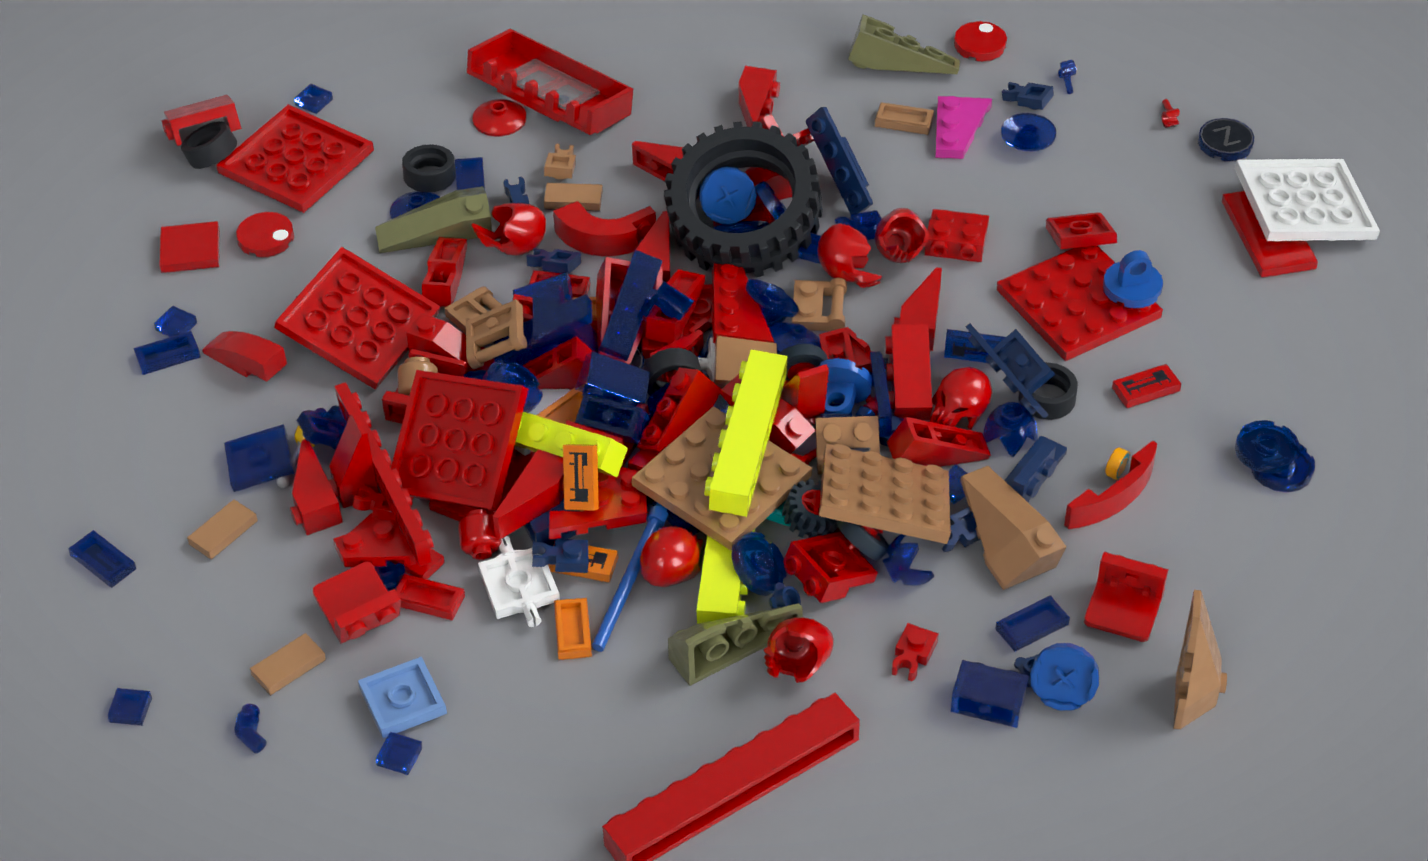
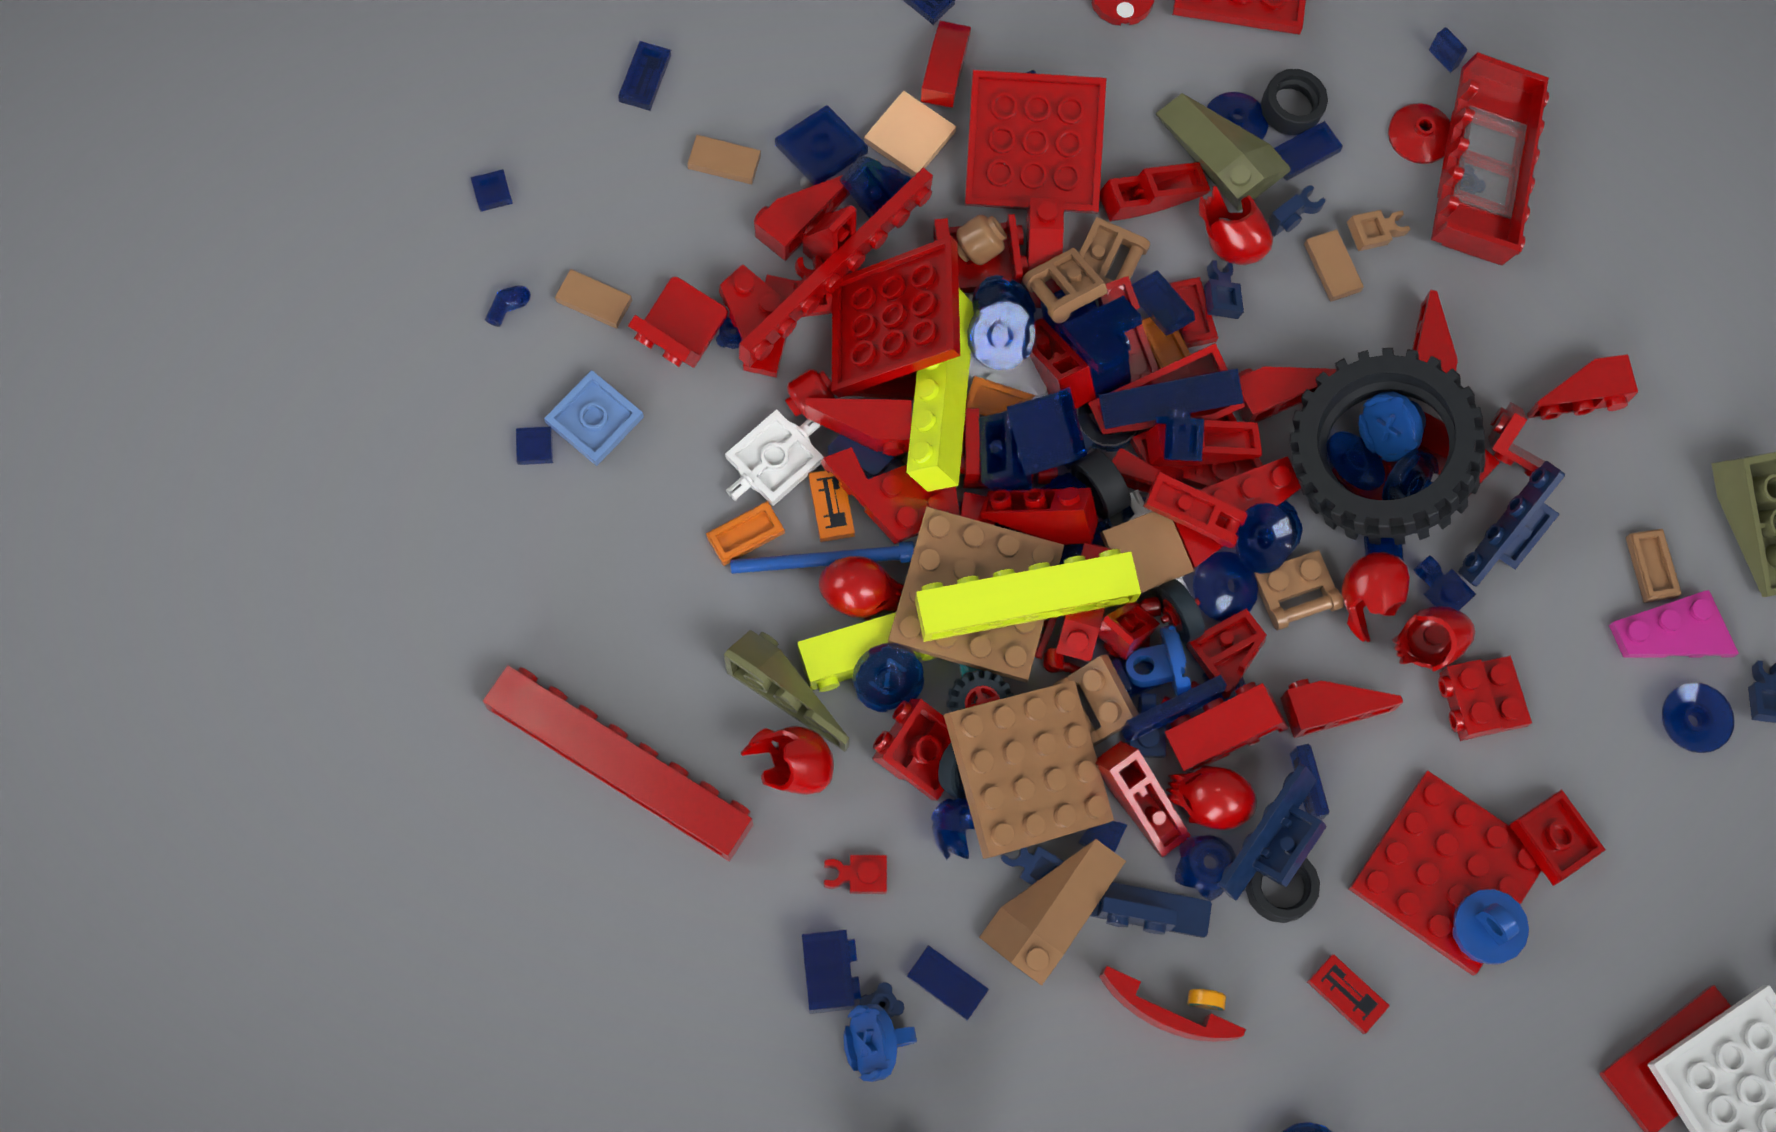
camera: 60 degrees right, 25 degrees up
(286, 398) = (909, 134): none -> light nougat tile
(429, 596) = (725, 383): red tile -> none
(447, 76) = (1448, 49): none -> clear blue tile
(567, 555) = (819, 488): dark blue plate -> none
(580, 477) = (890, 458): orange tile -> none
(599, 235) = (1281, 322): red arch -> none
(732, 313) = (1194, 509): none -> red plate
(784, 596) = (860, 729): dark blue plate -> none
(1126, 597) = (1012, 1072): red bracket -> none

